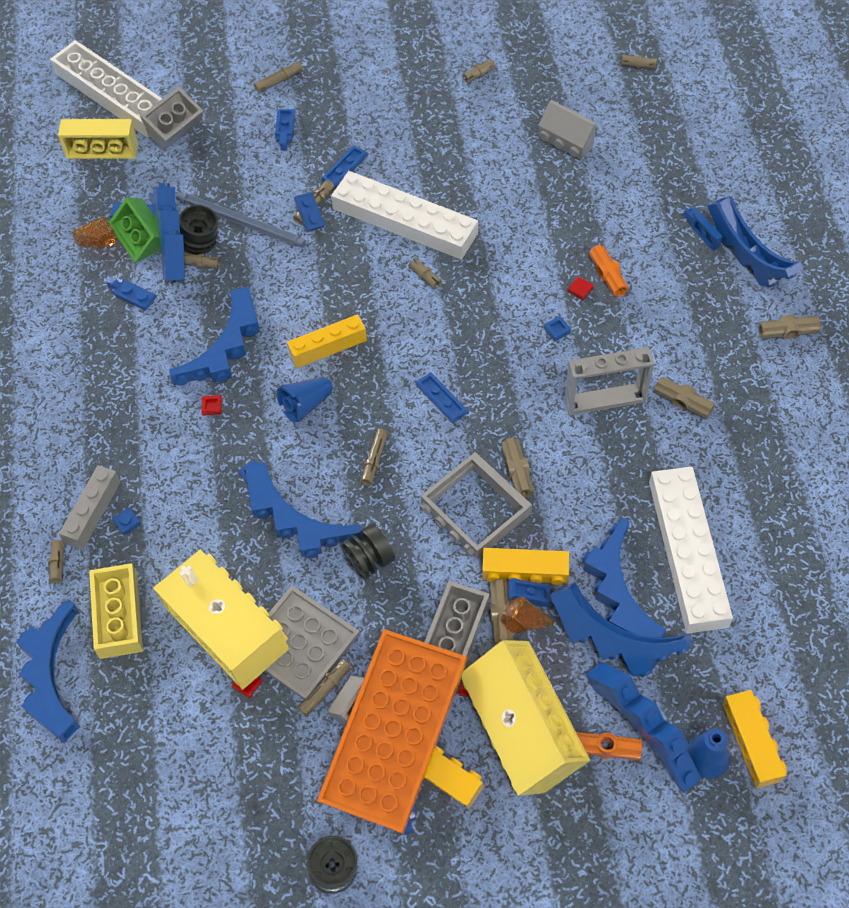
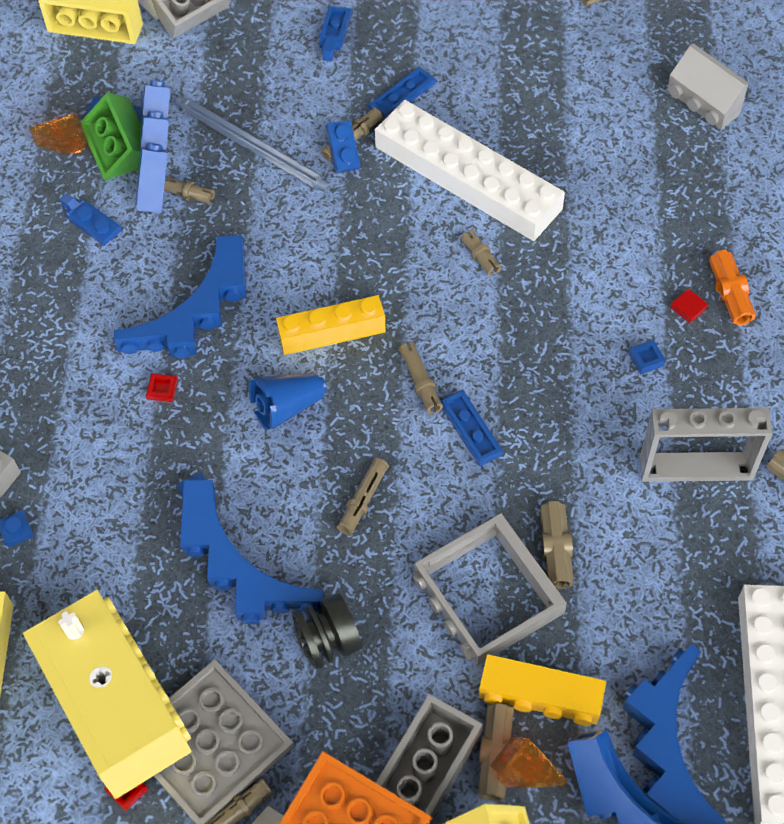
camera: 10 degrees right, 0 degrees up
(199, 229) = (192, 148): pearl dark grey wheel -> none
(403, 374) = (424, 386): none -> dark tan pin
(535, 593) = (540, 729): blue plate -> none

